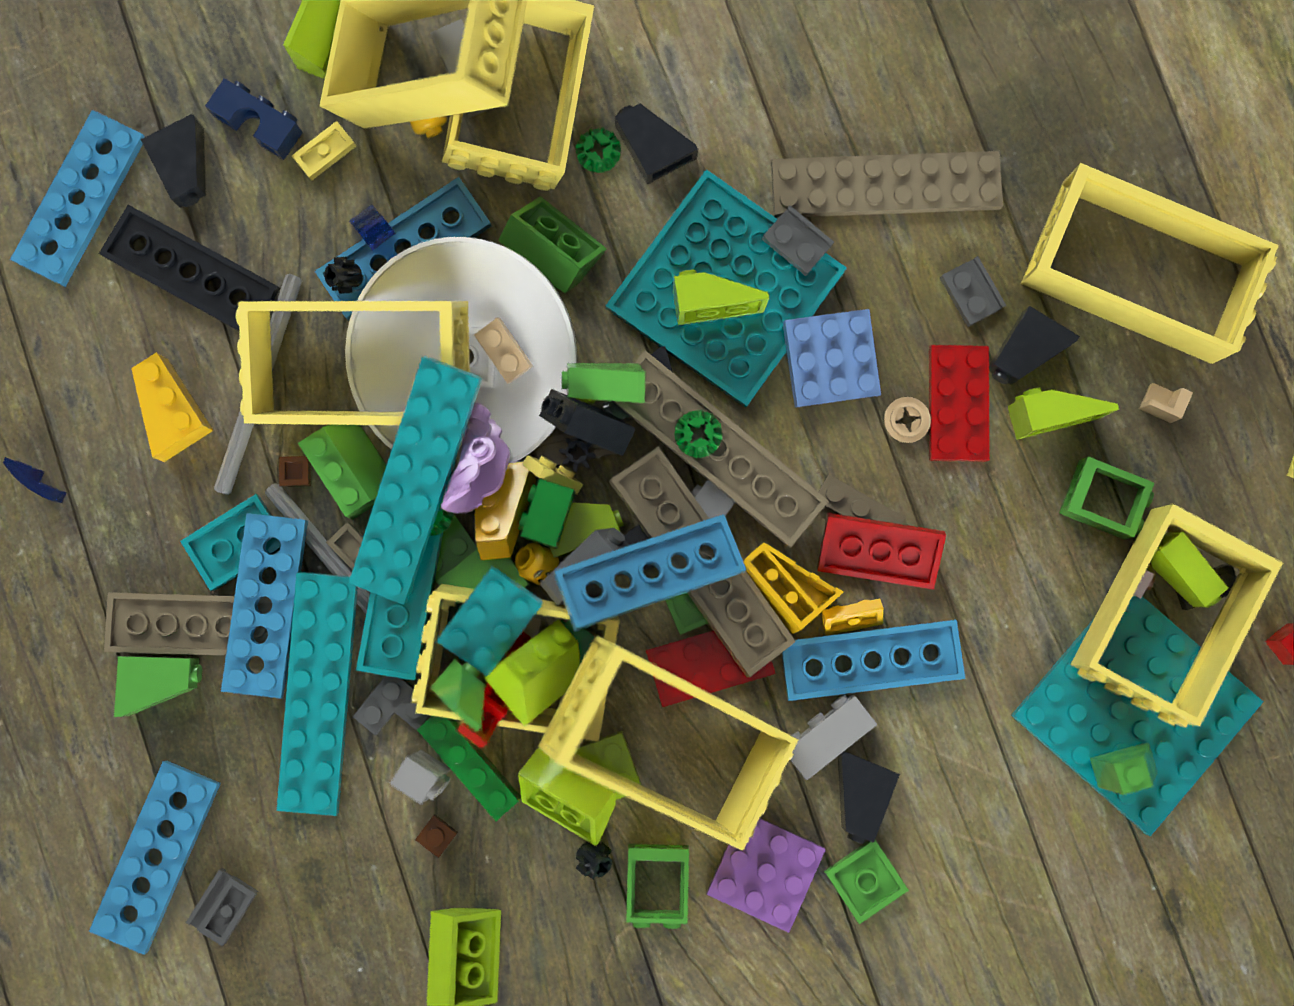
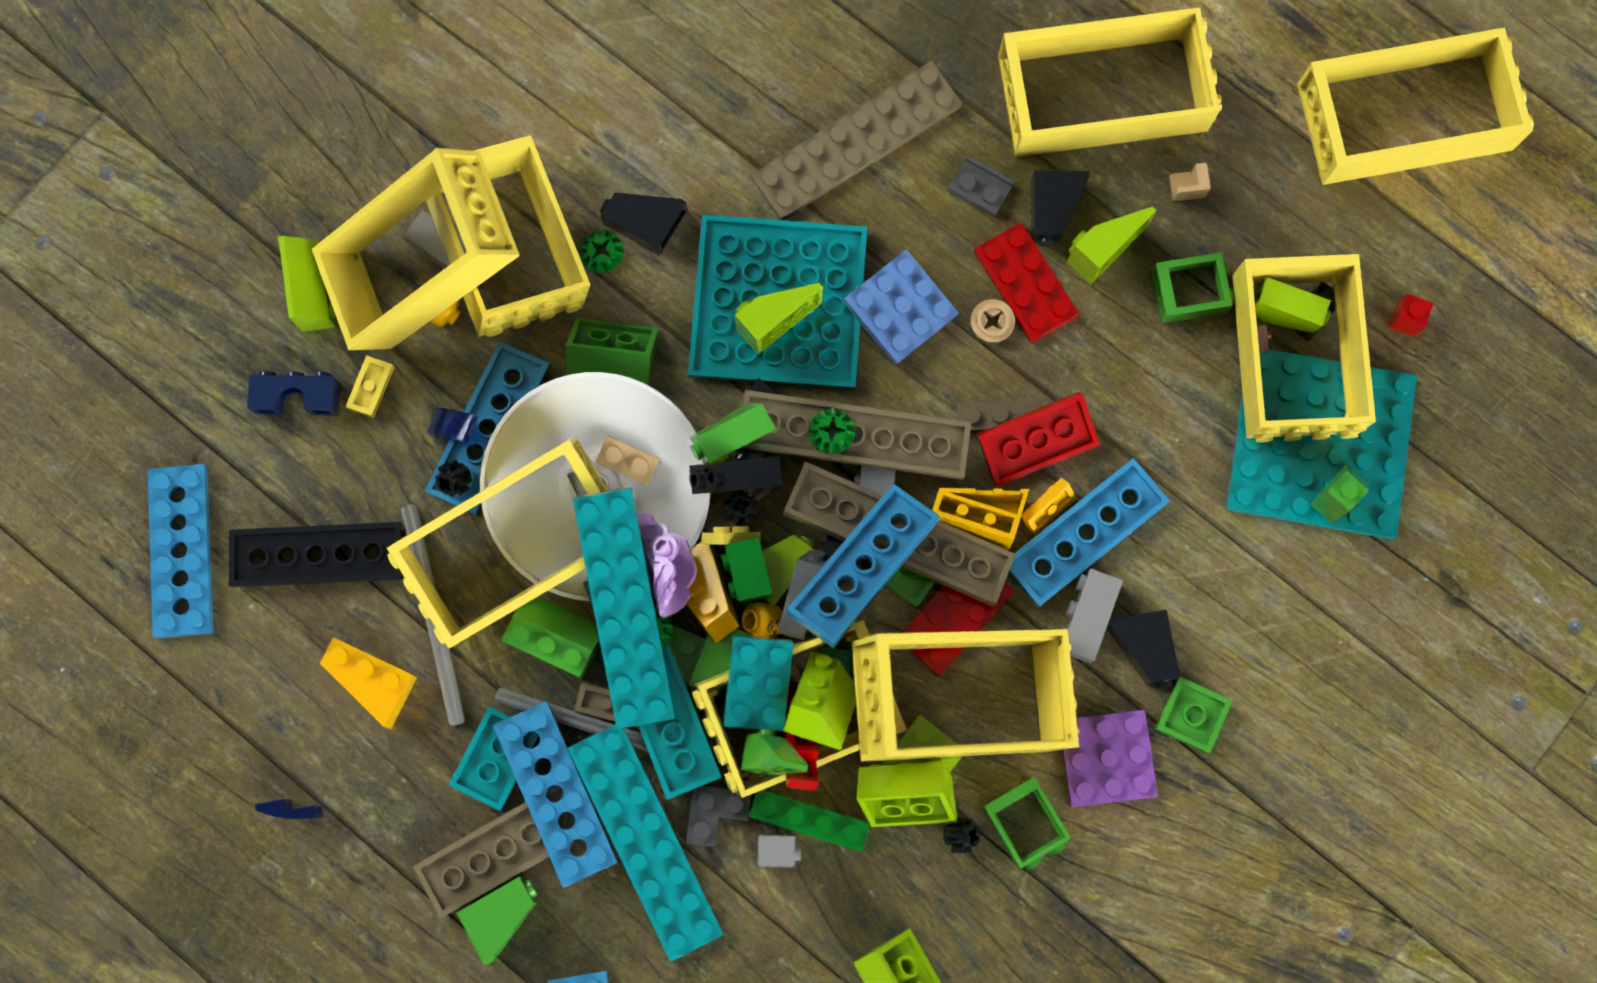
camera: 30 degrees left, 5 degrees down
(179, 159) = (250, 466): black slope -> none
(294, 471) = (510, 668): reddish brown plate -> none
(436, 836) = (818, 899): reddish brown plate -> none
(797, 240) = (813, 228): dark grey plate -> none

